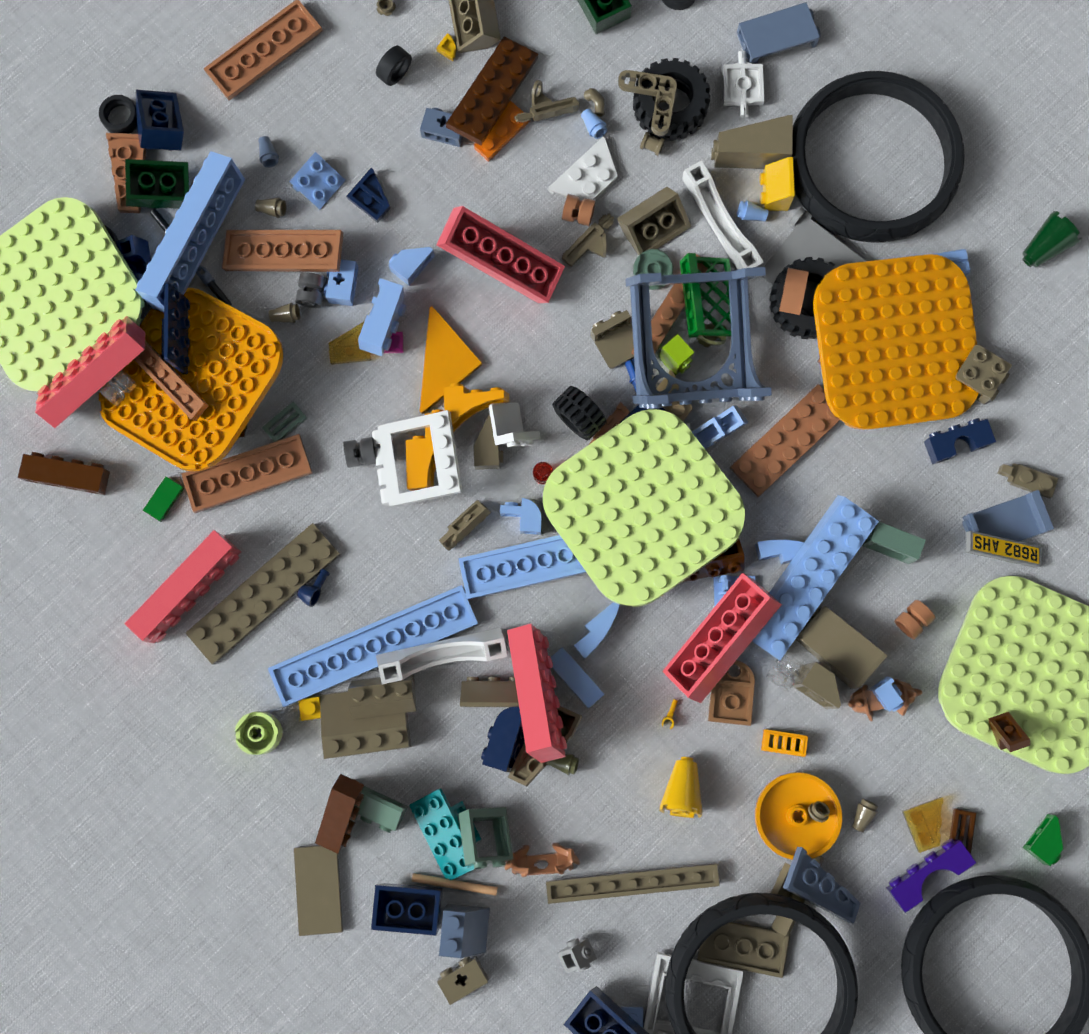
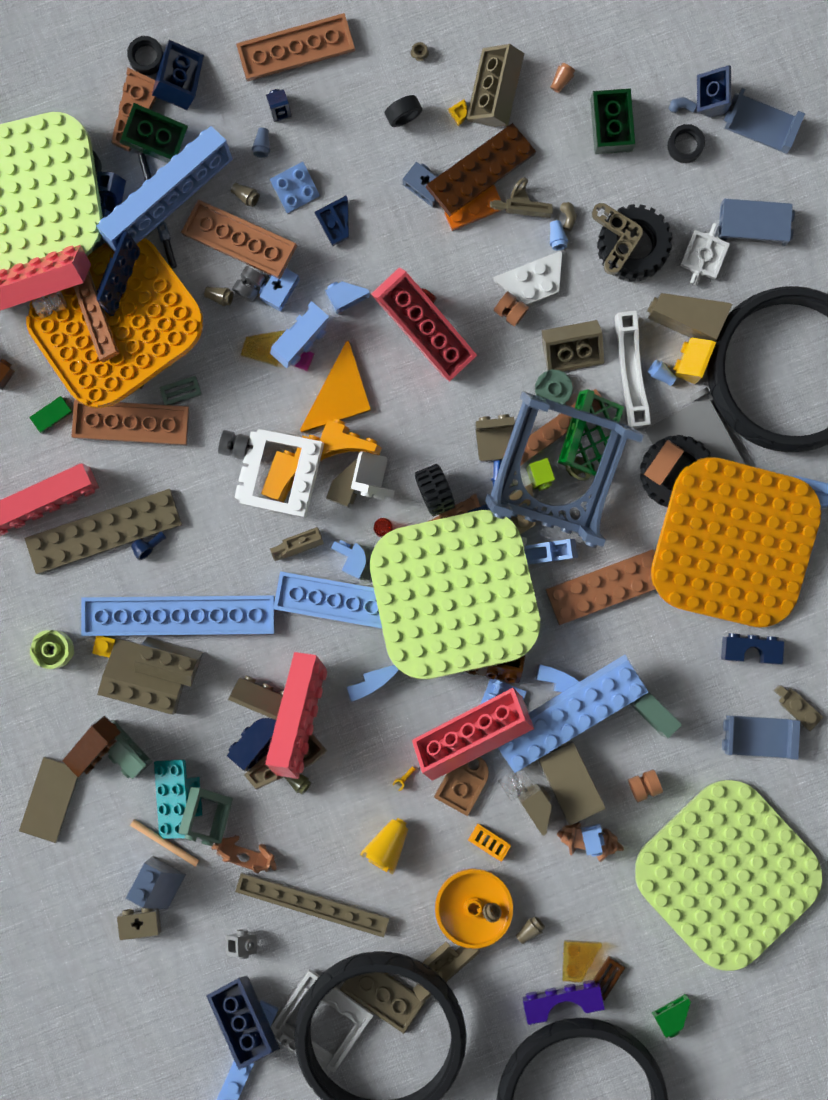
camera: 20 degrees right, 5 degrees up
(269, 109) = (278, 104): none -> dark blue slope
(406, 909) = (116, 847): dark blue brick -> none
(478, 646) = (195, 642): white arch -> none
(576, 678) = (337, 714): light blue slope -> none
(590, 240) = (510, 340): dark tan piece -> none
(652, 143) = (600, 275): dark tan bush -> none
(819, 888) = (462, 970): sand blue wing -> none
(983, 373) = (799, 600): dark tan bracket -> none
(1003, 549) = (746, 758): tile -> none
(1008, 732) = (679, 914): reddish brown slope -> none

